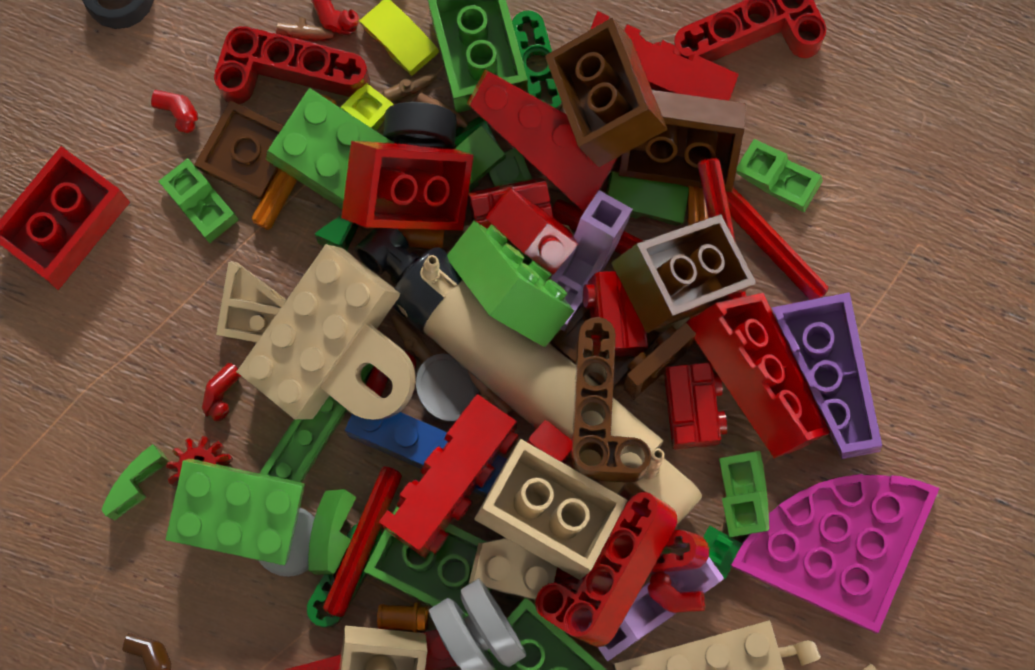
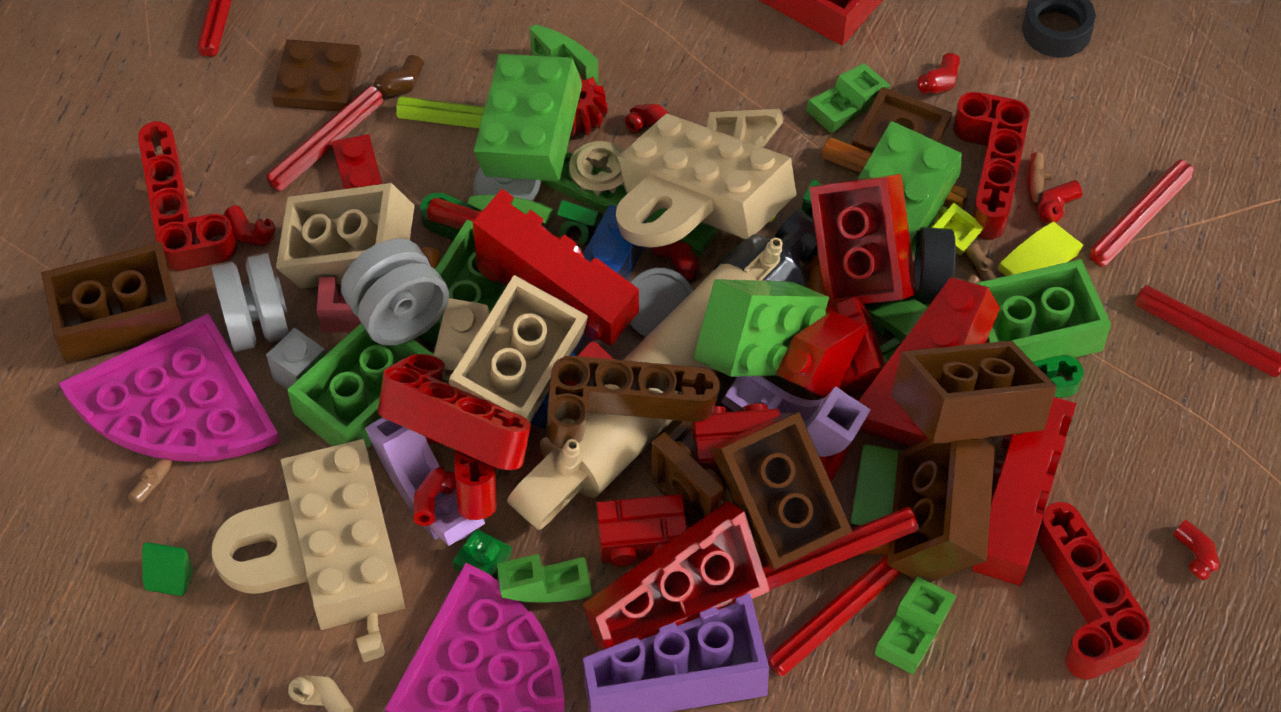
camera: 85 degrees right, 20 degrees down
(198, 603) = (439, 112): none -> lime axle
(268, 447) = (596, 155): none -> tan gear
(341, 463) = (578, 217): none -> green tile

